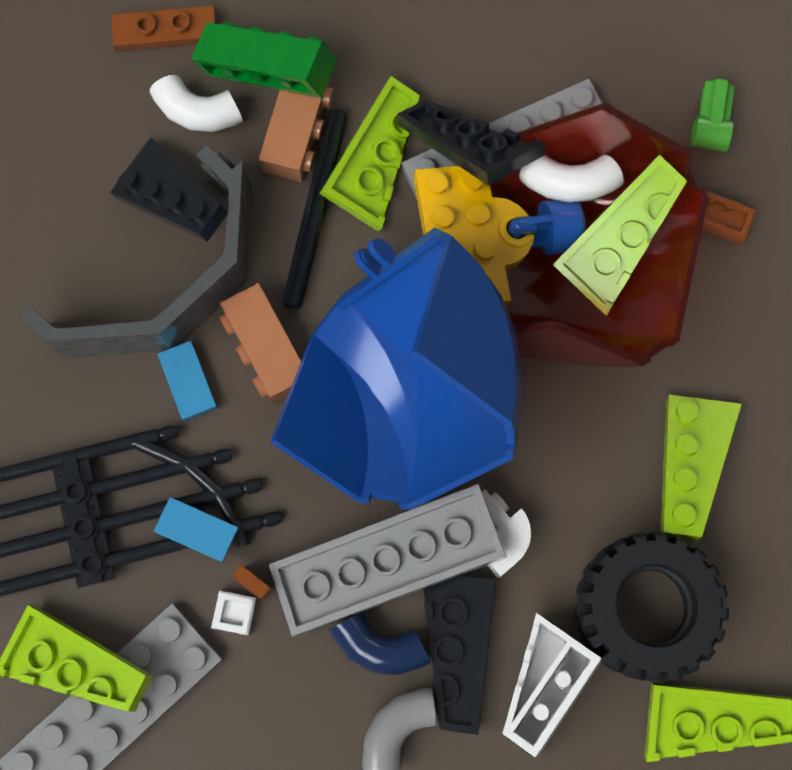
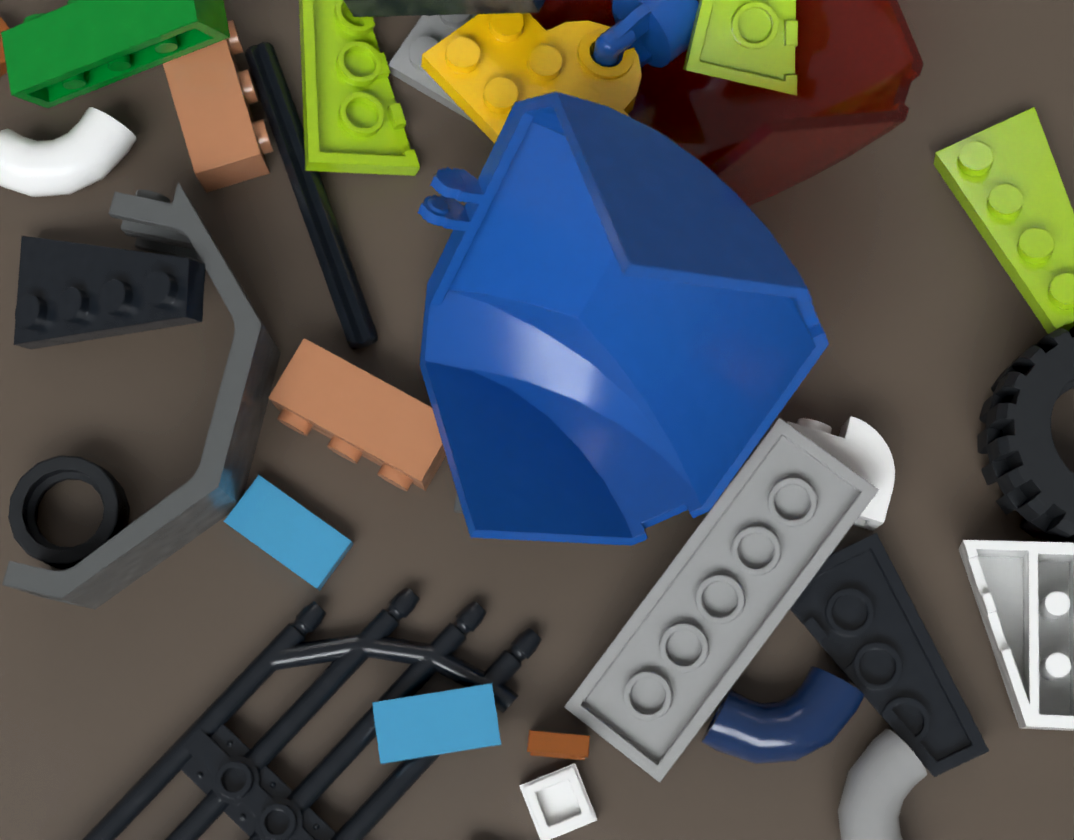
camera: 30 degrees left, 0 degrees up
(66, 277) = (38, 481): none -> black tyre

